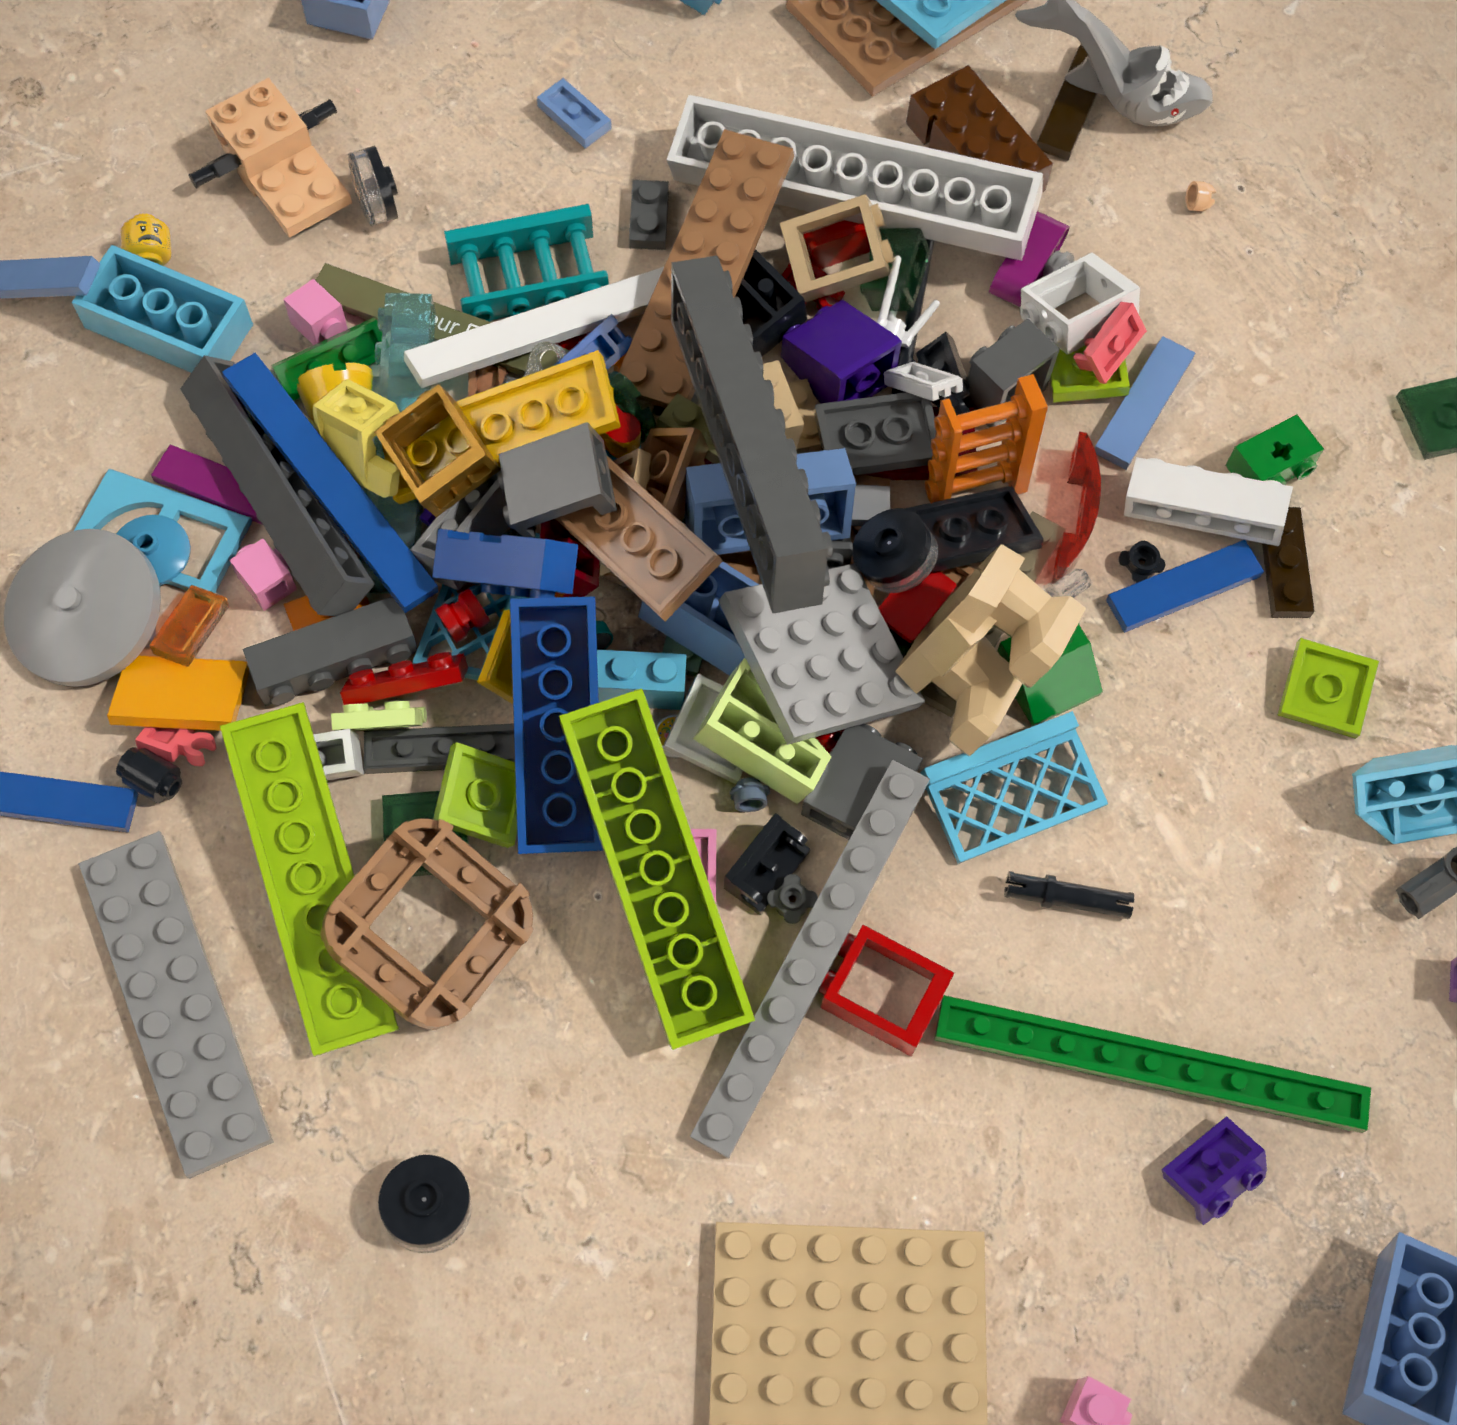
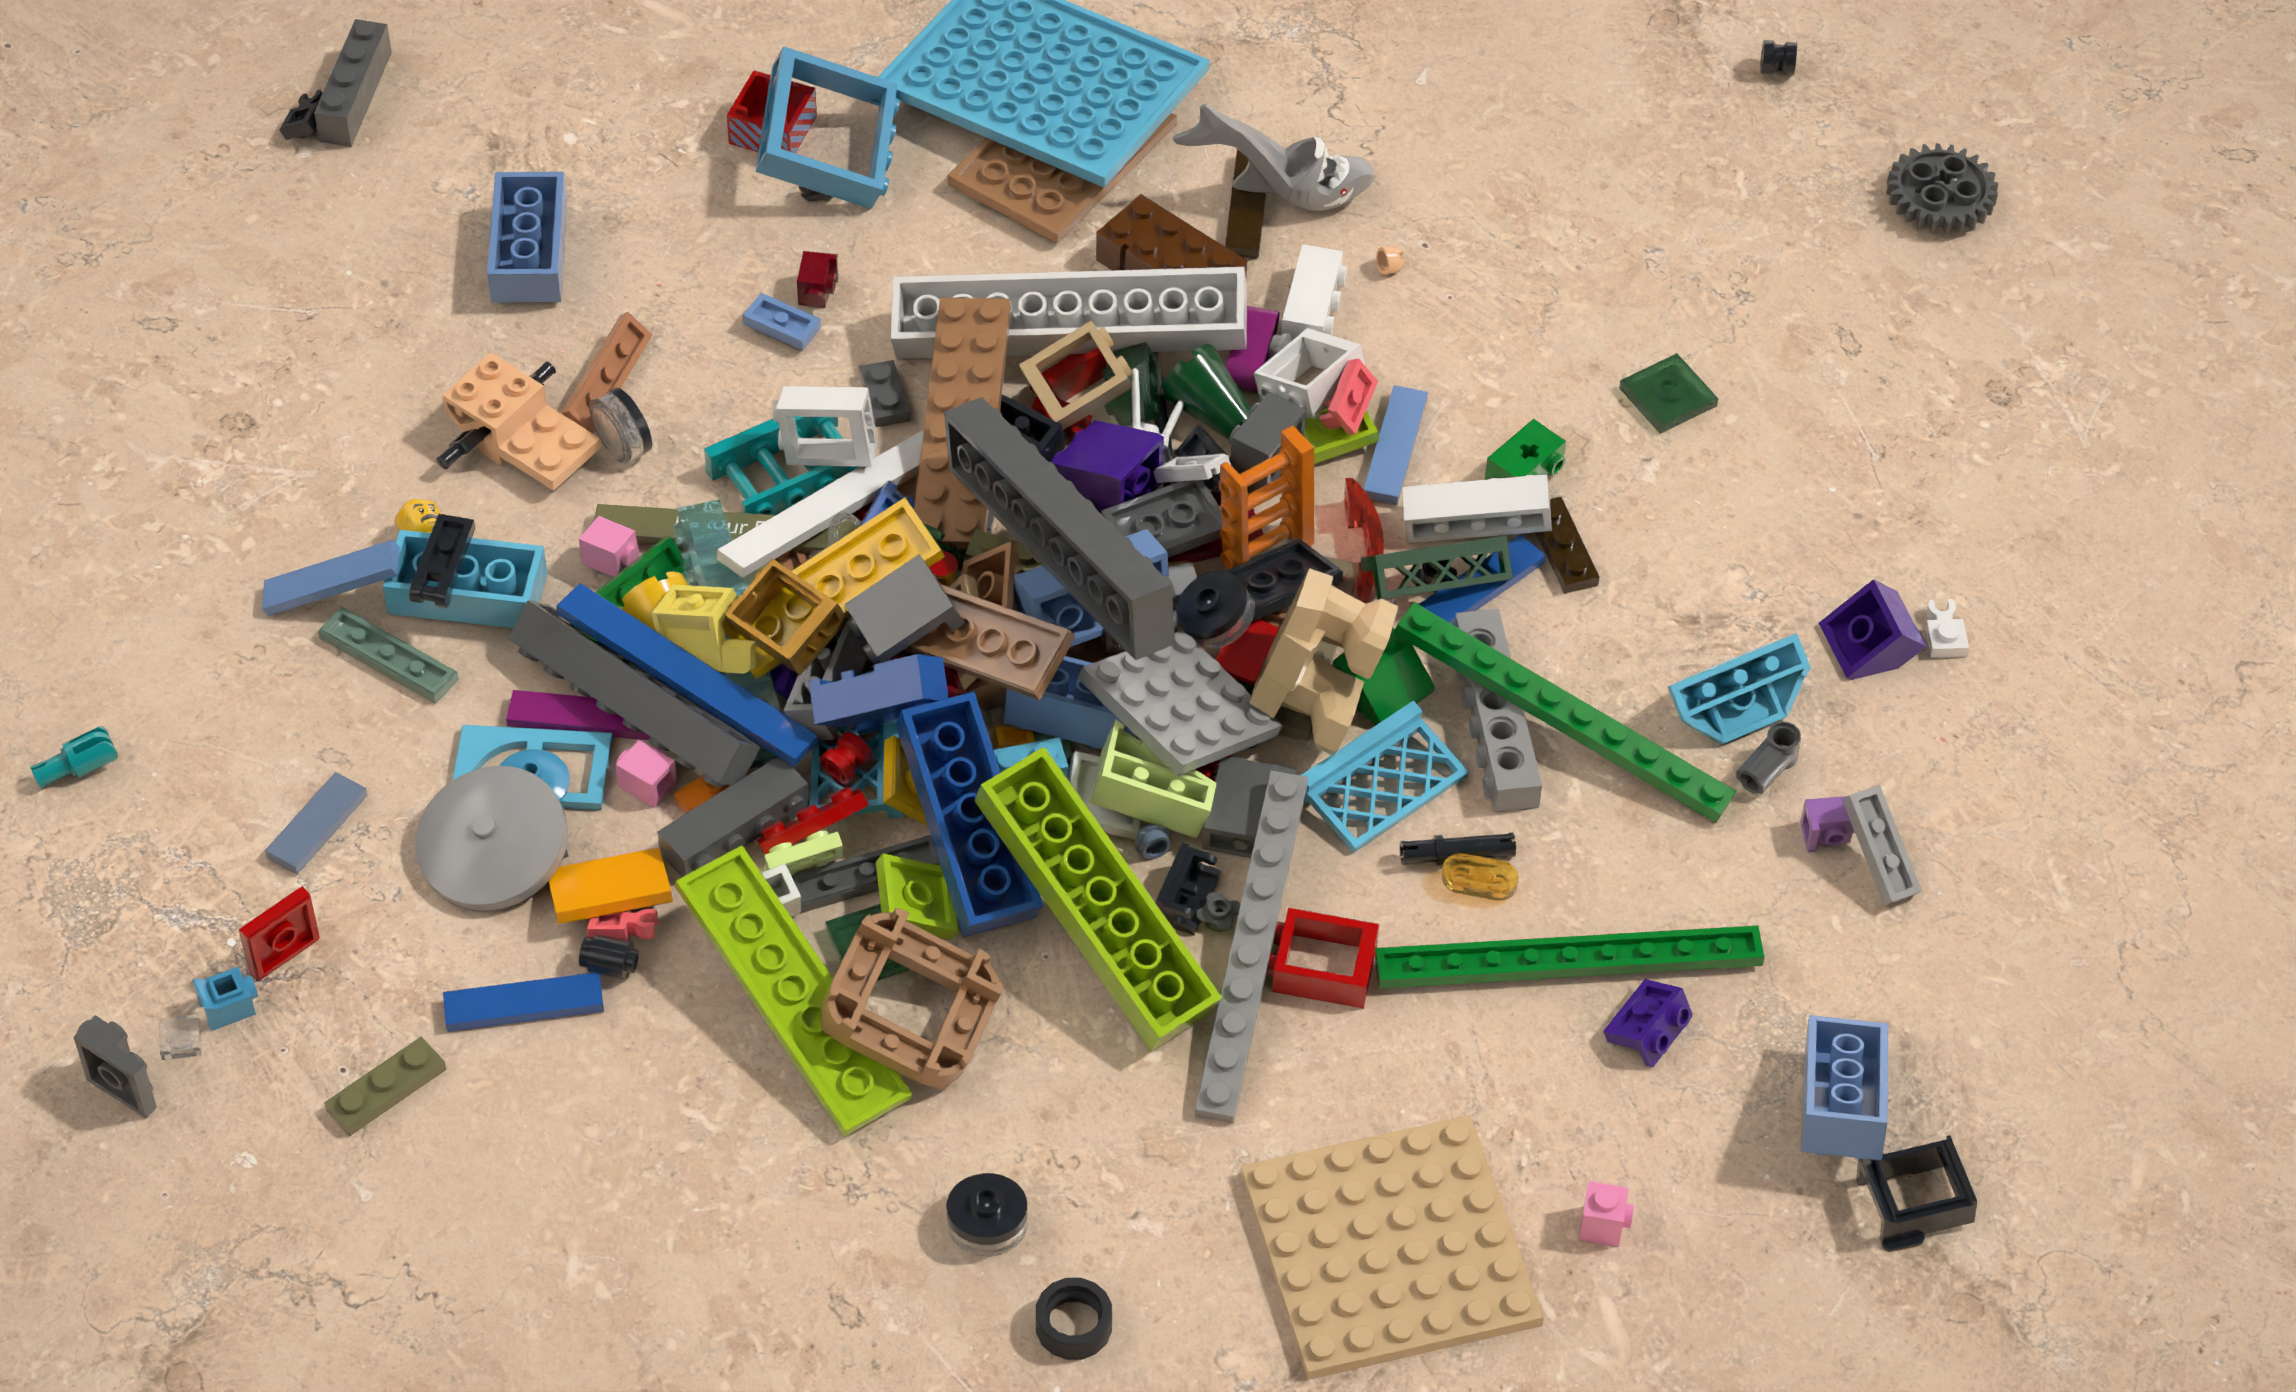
camera: 15 degrees left, 15 degrees down
(68, 373) = (388, 655): none -> sand green tile
(133, 290) = (442, 559): none -> black plate
(175, 1005) = (703, 1128): light grey plate -> none
(189, 625) = (595, 830): clear orange plate -> none
(388, 121) = (608, 368): none -> nougat plate
(440, 1355) = (1073, 1346): none -> black tyre
(572, 220) = (826, 402): none -> white window
(622, 76) = (817, 278): none -> dark red brick
(643, 637) = (1011, 736): none -> light orange plate
(968, 297) = (1207, 391): none -> dark green cone
(1083, 934) = (1480, 877): none -> clear yellow plate
(1111, 213) = (1314, 291): none -> white brick
(1145, 546) = (1436, 553): none -> dark green fence
(1174, 647) = (1499, 726): none -> light grey brick
(1233, 771) = (1565, 712): none -> green plate
(1328, 688) = (1630, 634): lime plate -> none

